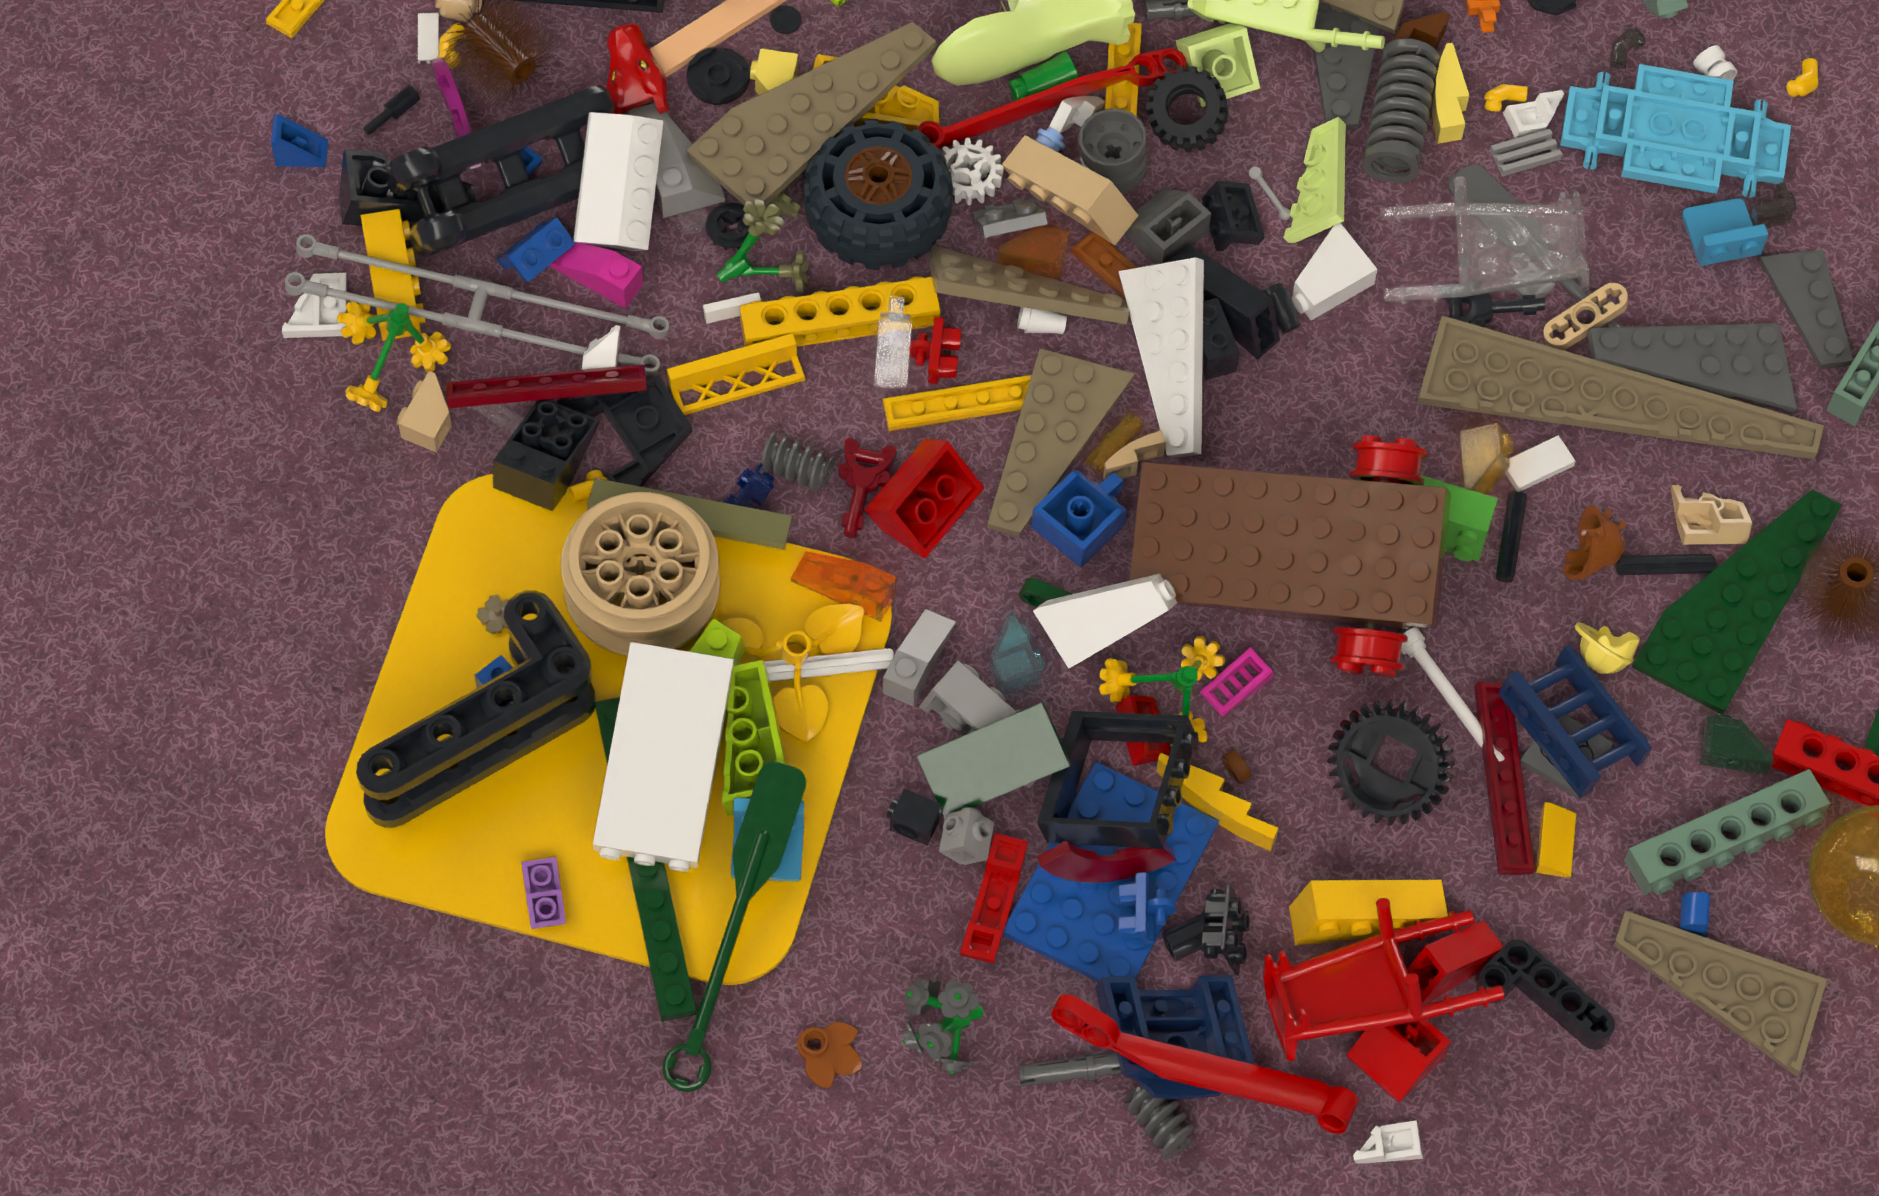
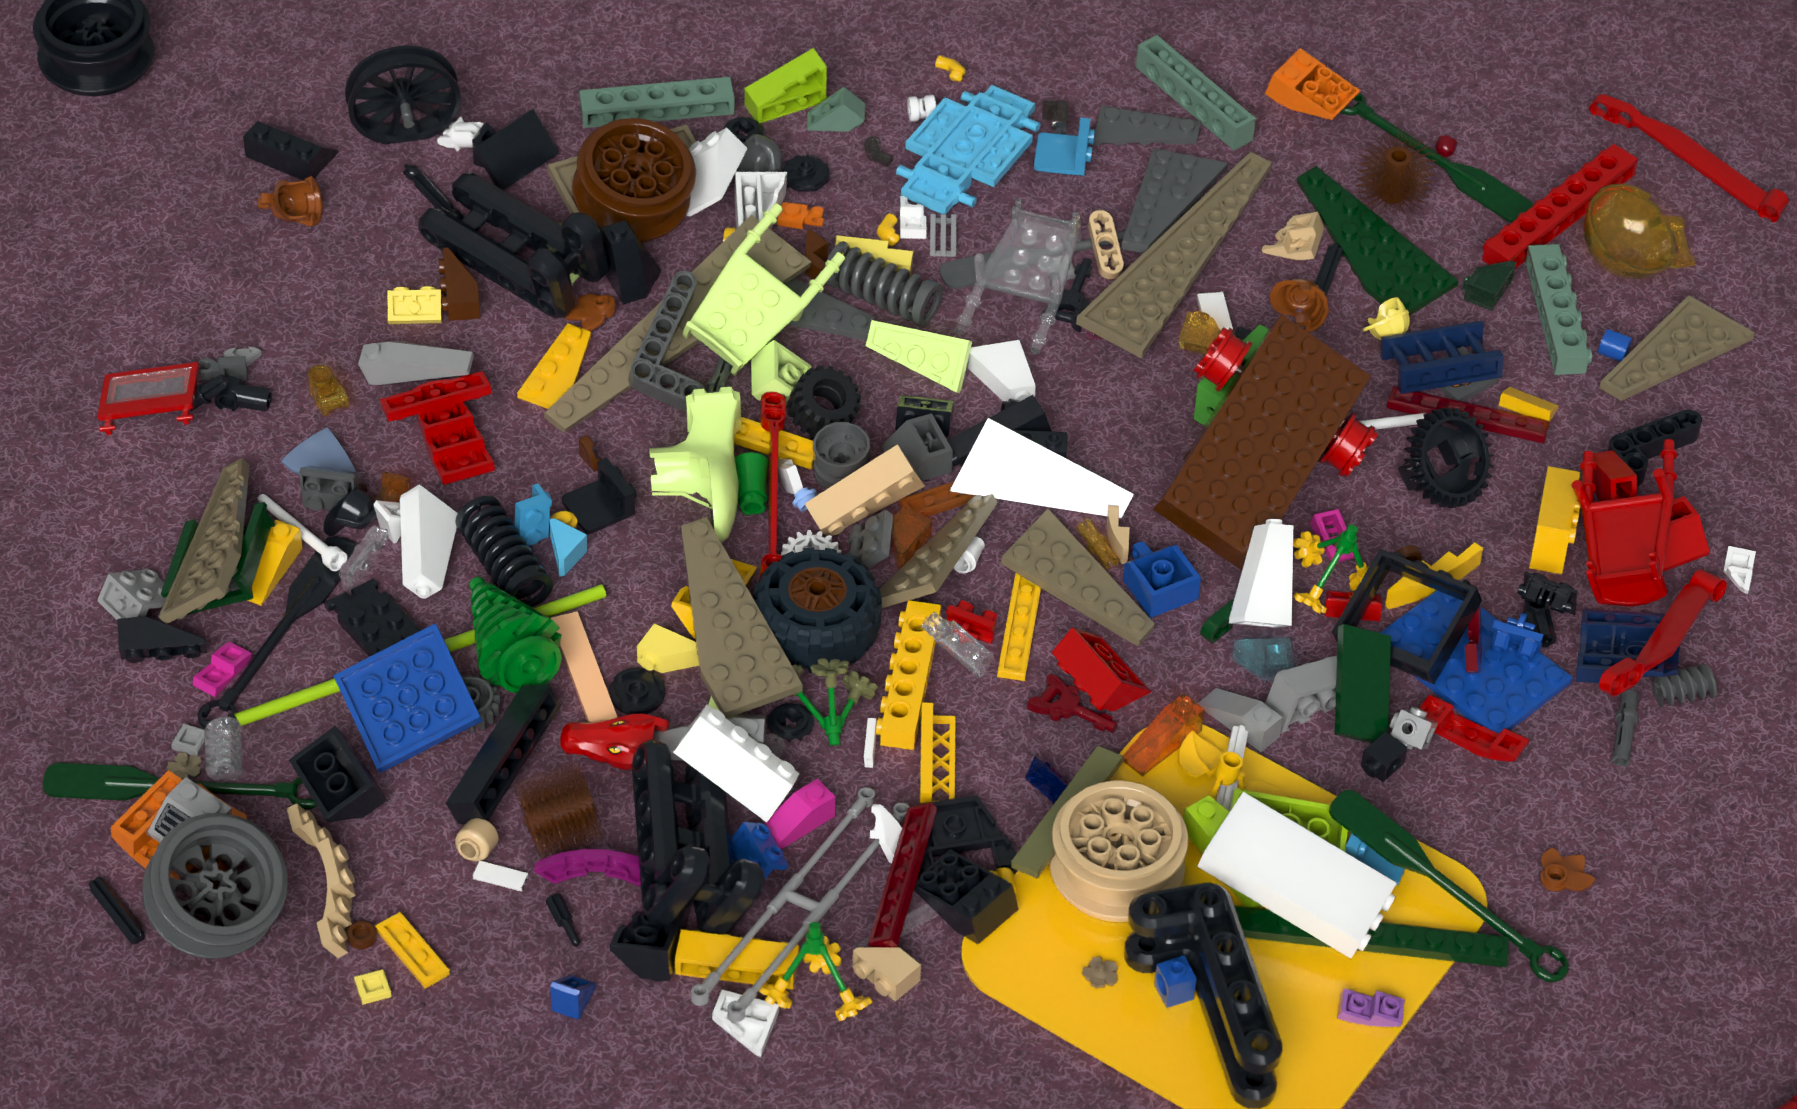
camera: 70 degrees left, 15 degrees down
(447, 36) = (517, 860): yellow arm -> none
(785, 19) = (601, 633): black piece -> none
(796, 463) = (1038, 737): dark grey piece -> none
(958, 1008) = (1558, 782): dark grey plant -> none
(1256, 174) = (890, 391): light grey hinge -> none

